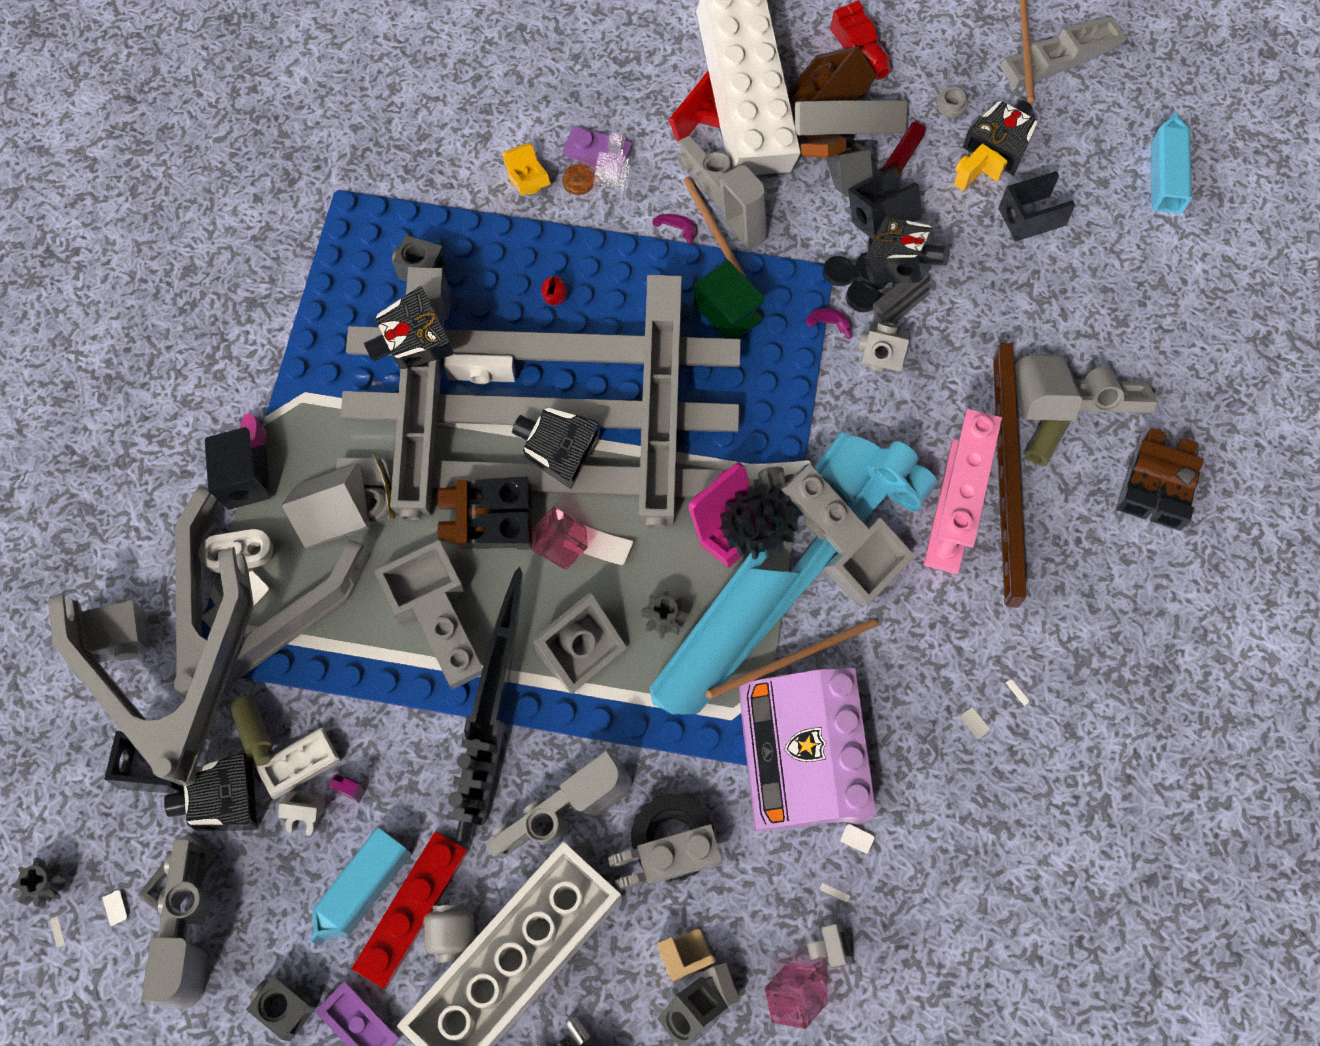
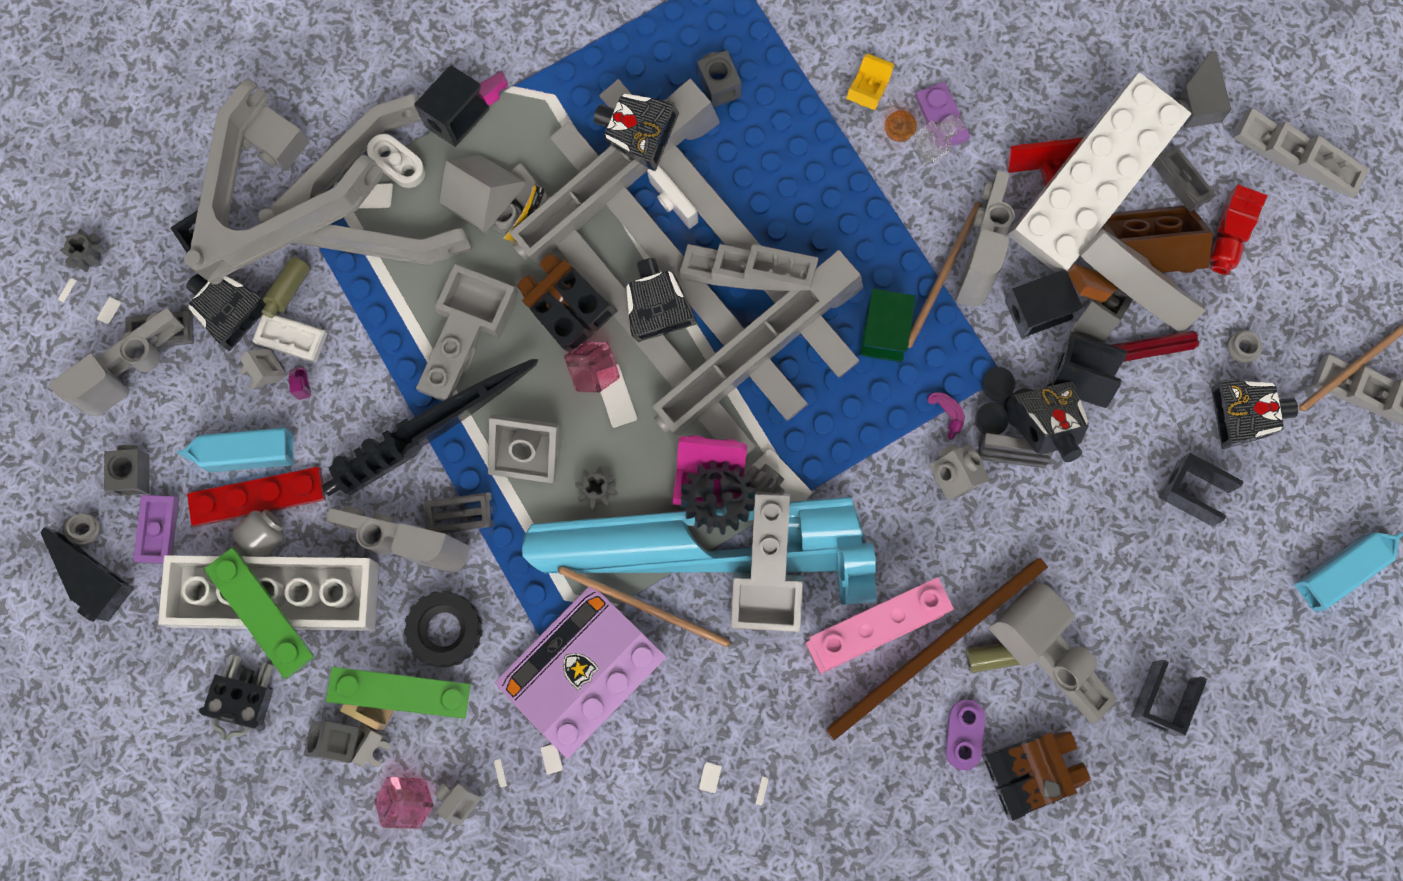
camera: 55 degrees right, 10 degrees up
(527, 976) = (259, 613): none -> bright green plate
(560, 291) = (789, 196): red hinge -> none
(602, 718) = (485, 511): none -> flat silver tile
(604, 346) = (749, 269): none -> light grey slope
(669, 857) = (421, 639): light grey hinge -> none
(678, 222) = (934, 229): magenta piece -> none
(697, 918) = (397, 692): none -> bright green plate
(800, 42) = (1183, 178): none -> flat silver tile
(806, 194) = (1043, 303): none -> black piece
(980, 161) = (1193, 409): yellow bracket -> none
(1089, 508) = (965, 734): none -> medium lavender plate
(1191, 339) = (1185, 710): none -> black piece

